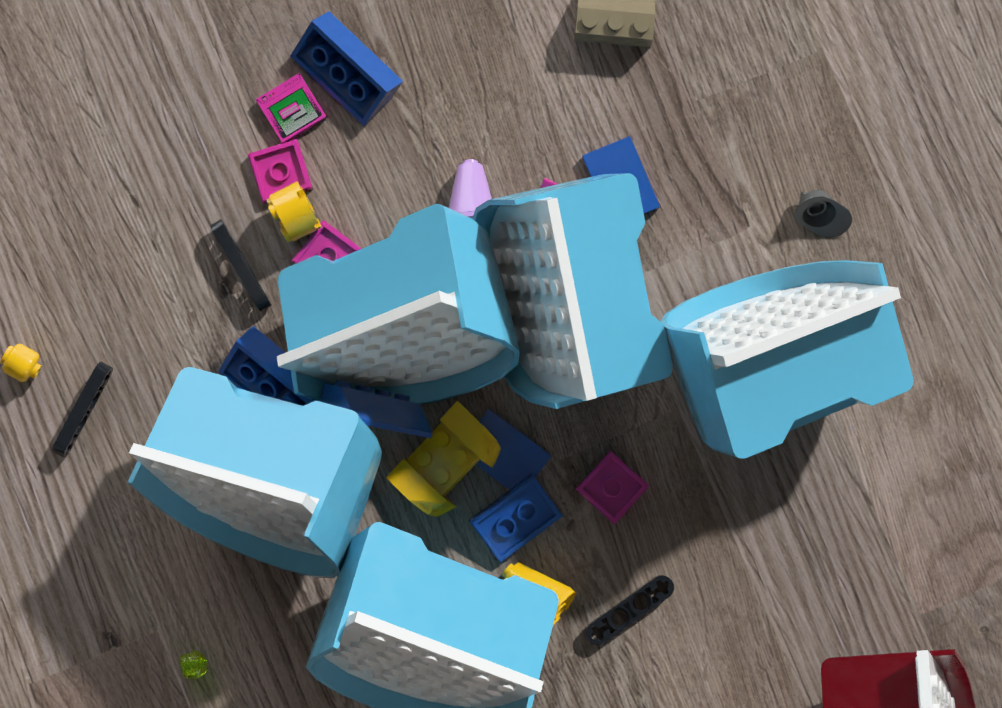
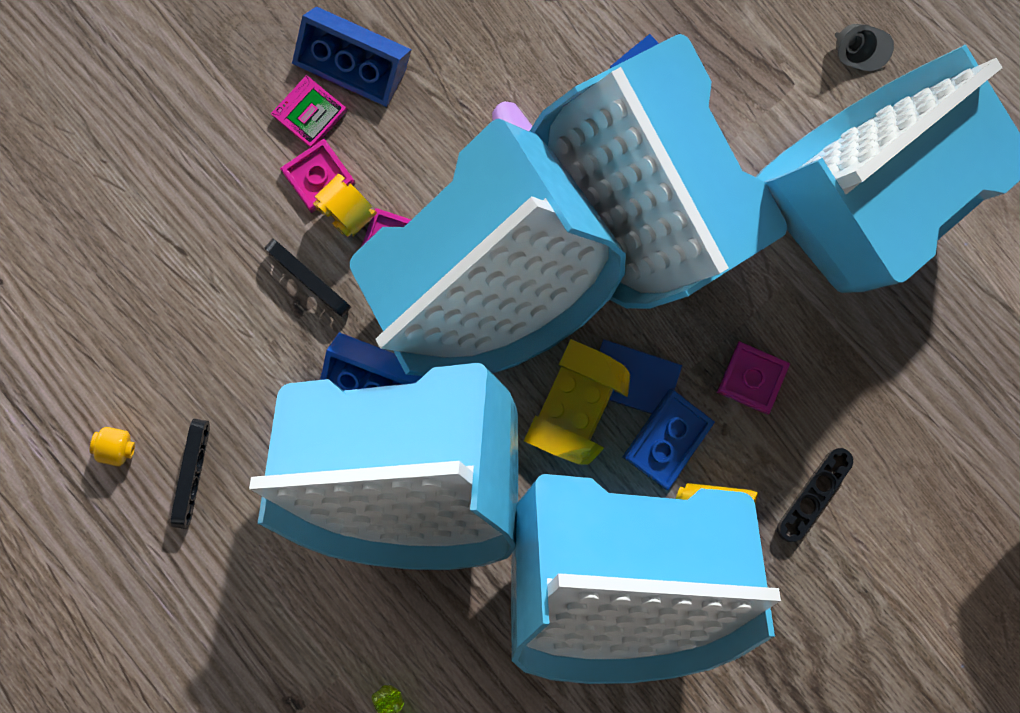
camera: 15 degrees left, 5 degrees down
(379, 408) = (513, 368): blue slope -> none

